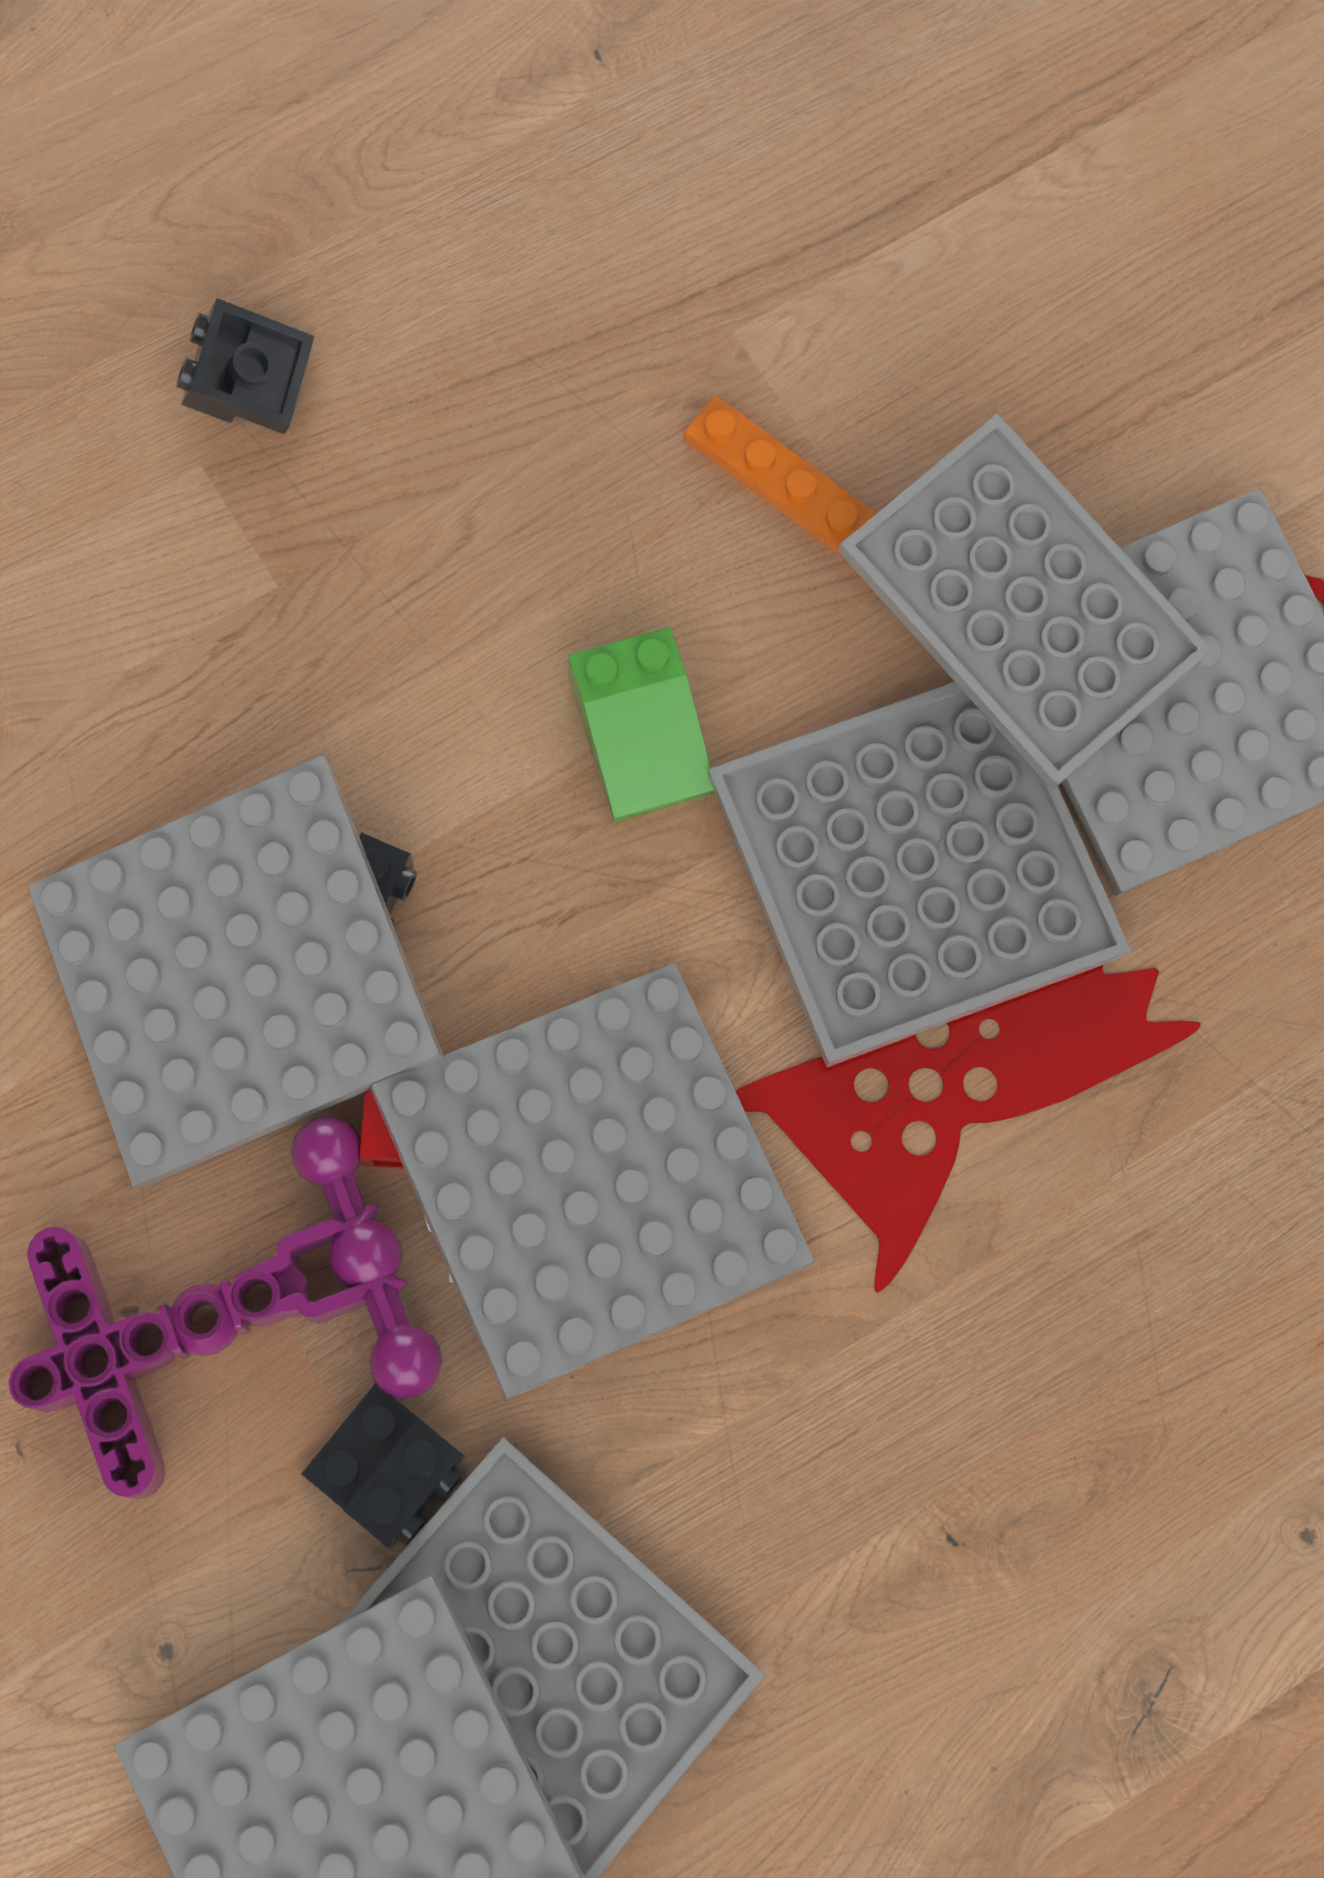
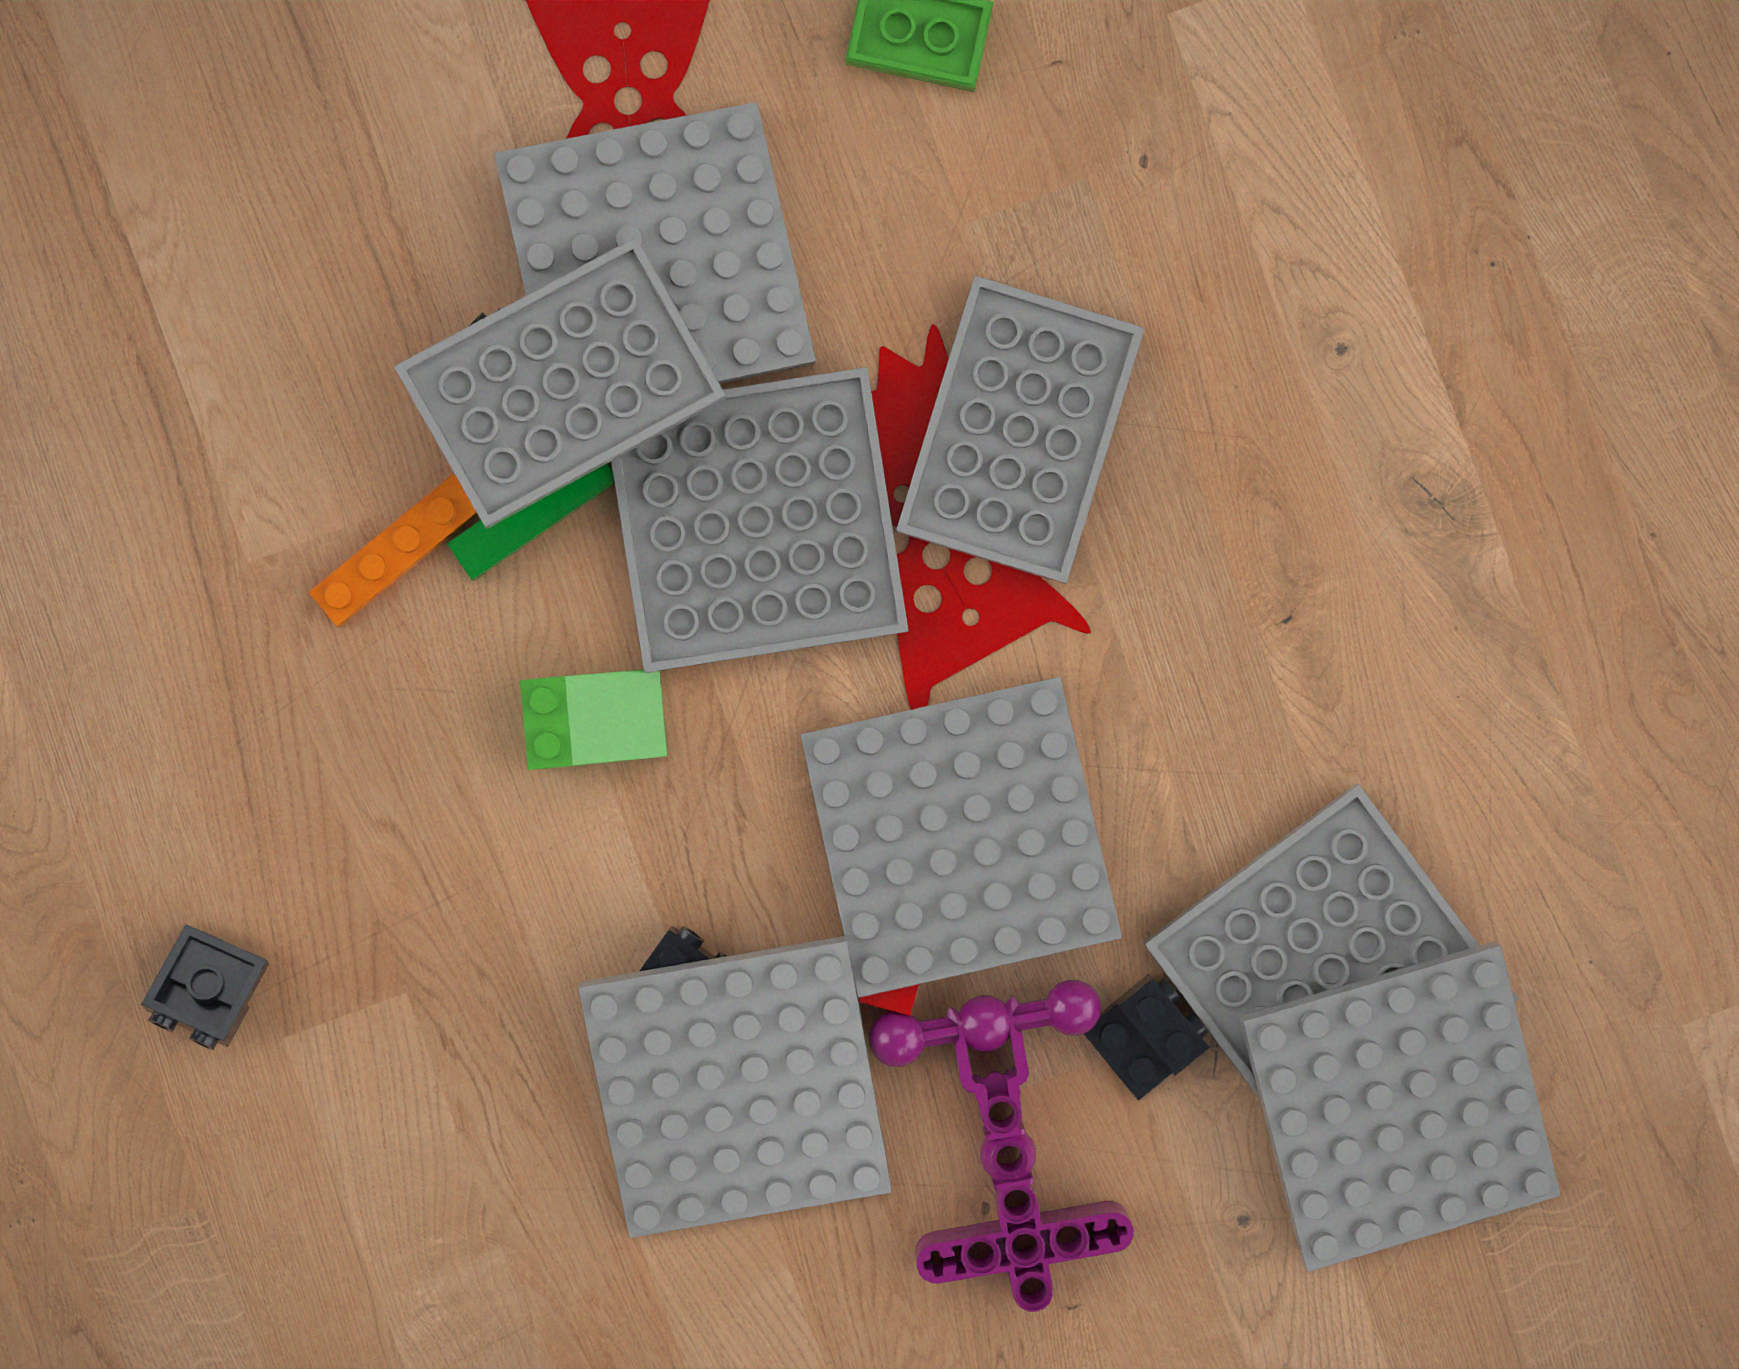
camera: 65 degrees left, 15 degrees up
(857, 612) = (484, 548): none -> green tile
(1103, 1149) = (1020, 430): none -> light grey plate

